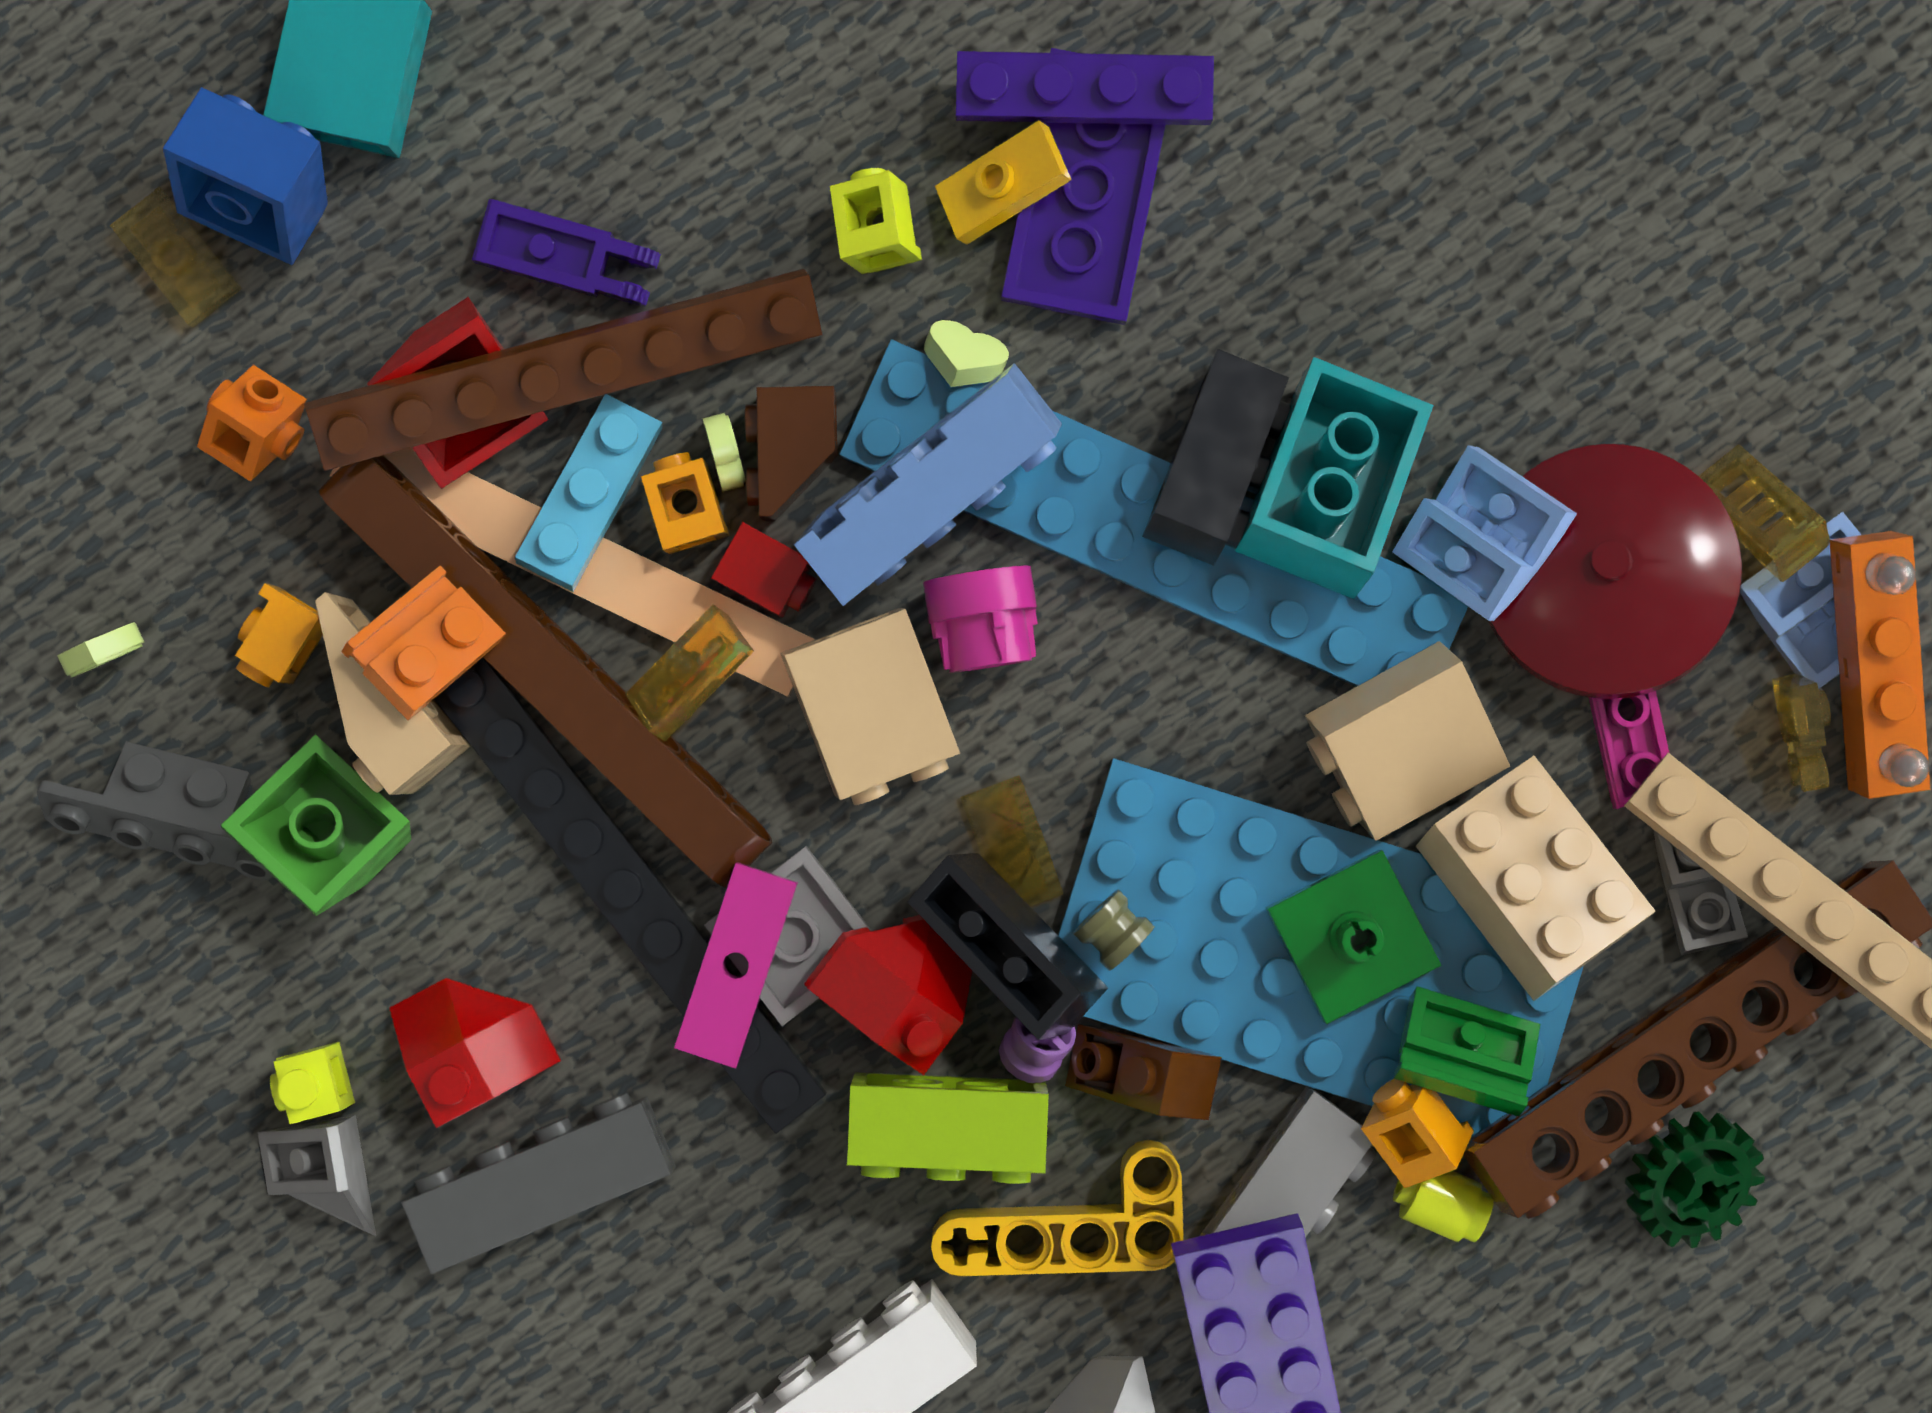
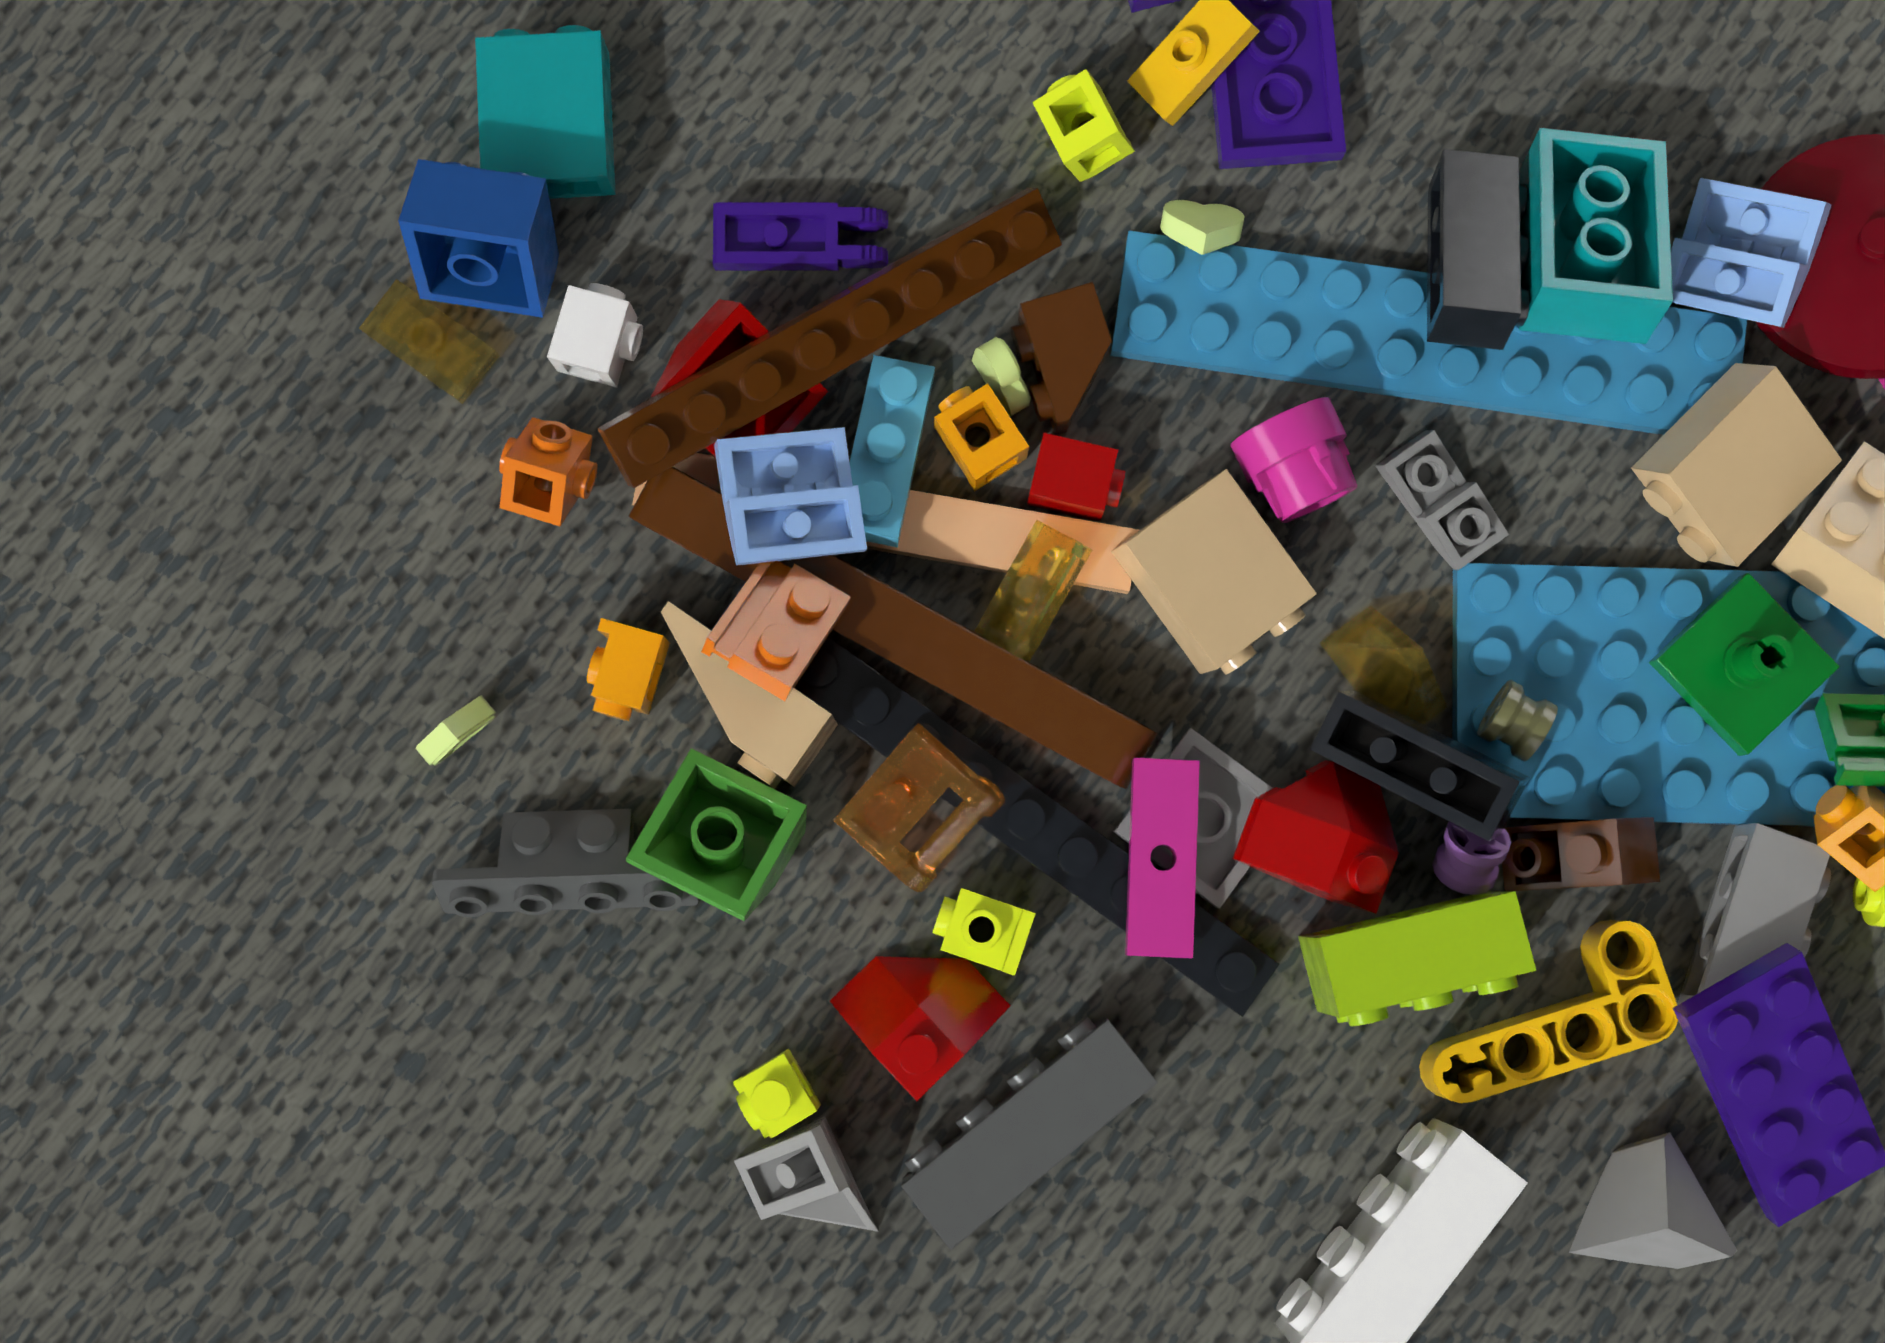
camera: 15 degrees left, 5 degrees down
(338, 297) = (595, 334): none -> white brick
(475, 519) = (789, 496): none -> light blue slope
(508, 833) = (902, 793): none -> clear orange plate
(576, 983) = (1009, 937): none -> neon yellow brick
(929, 484) = (1217, 342): medium blue wedge -> none
(1119, 691) = (1441, 501): none -> light grey slope

